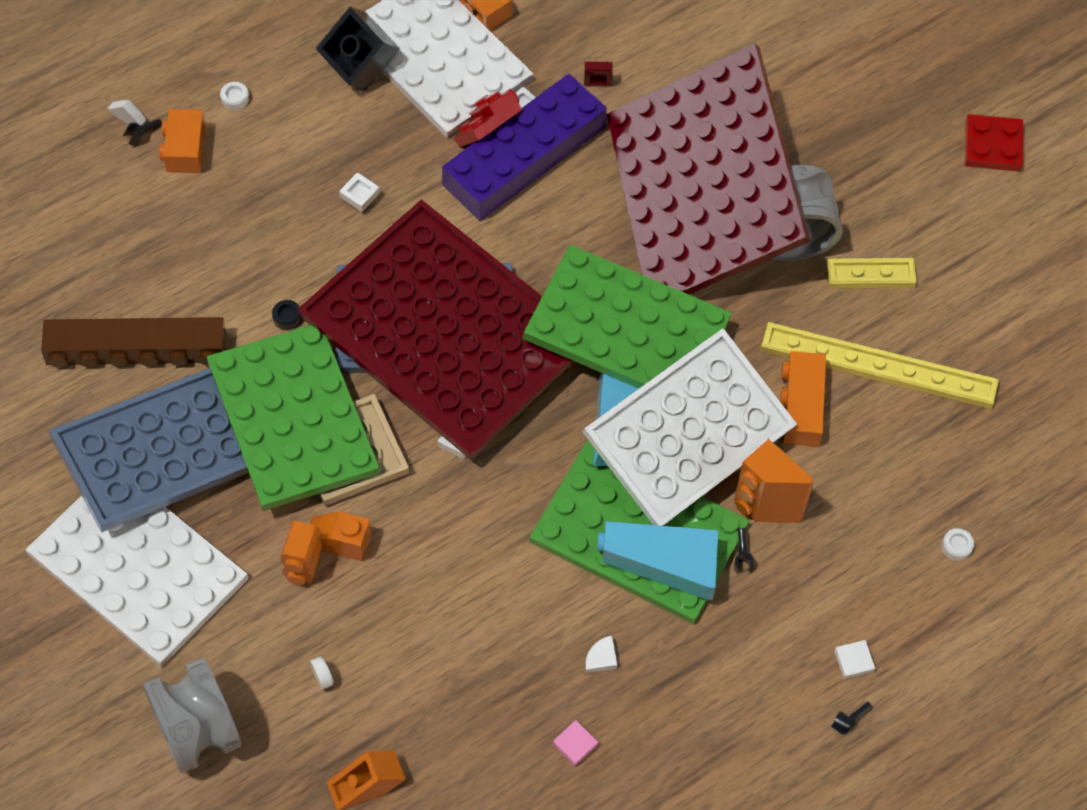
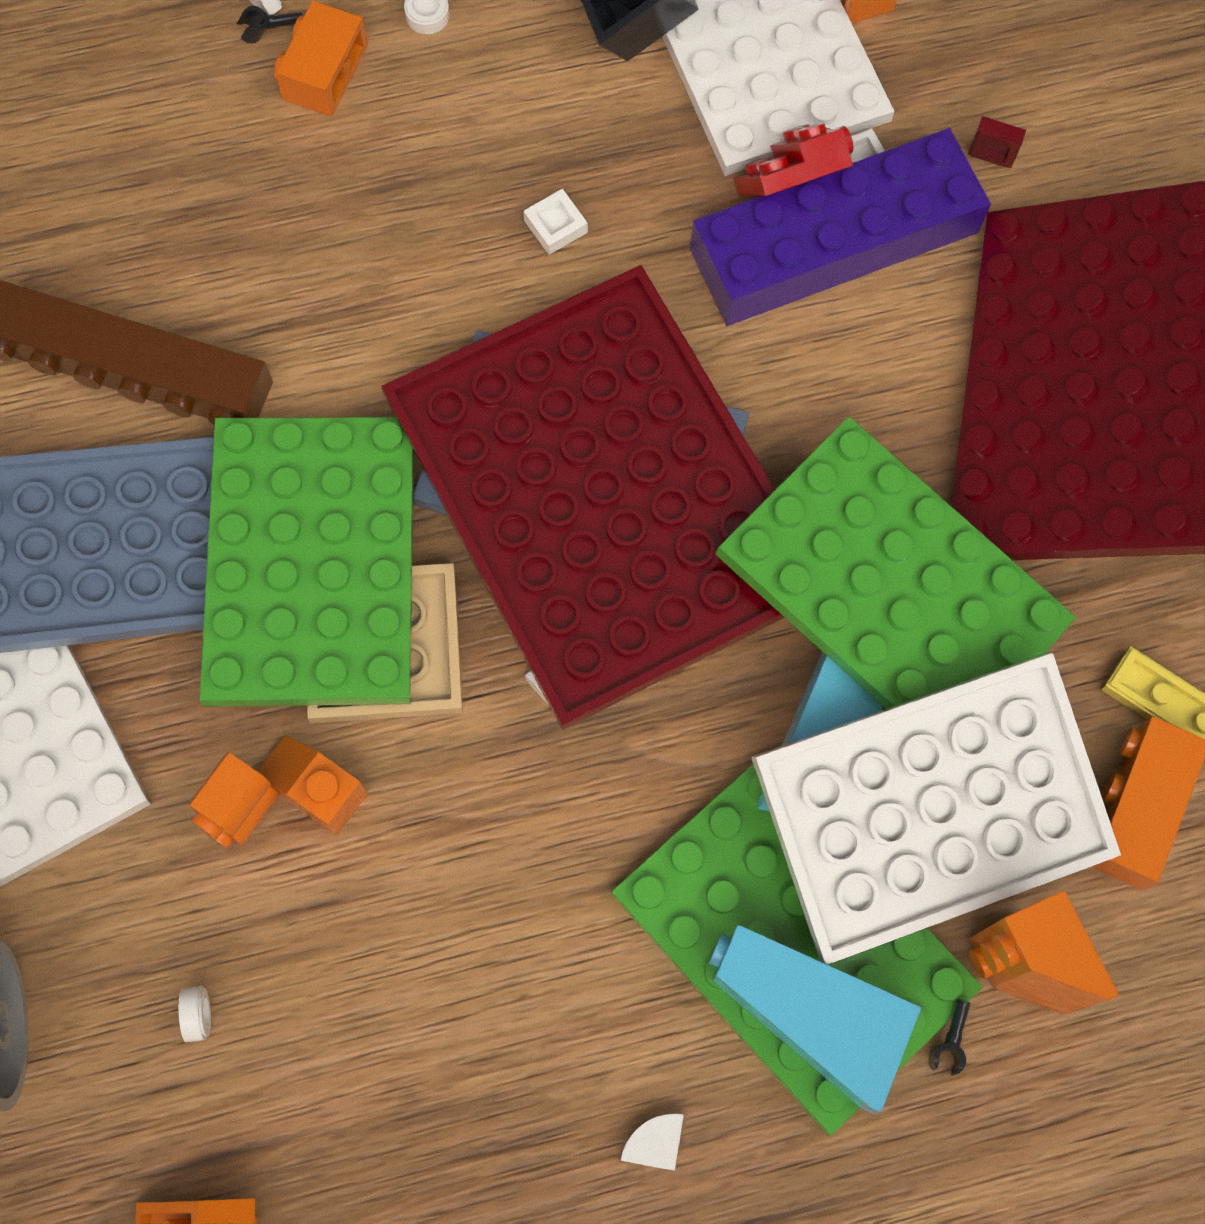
camera: 20 degrees right, 10 degrees up
(286, 315) = (366, 384): black tile -> none

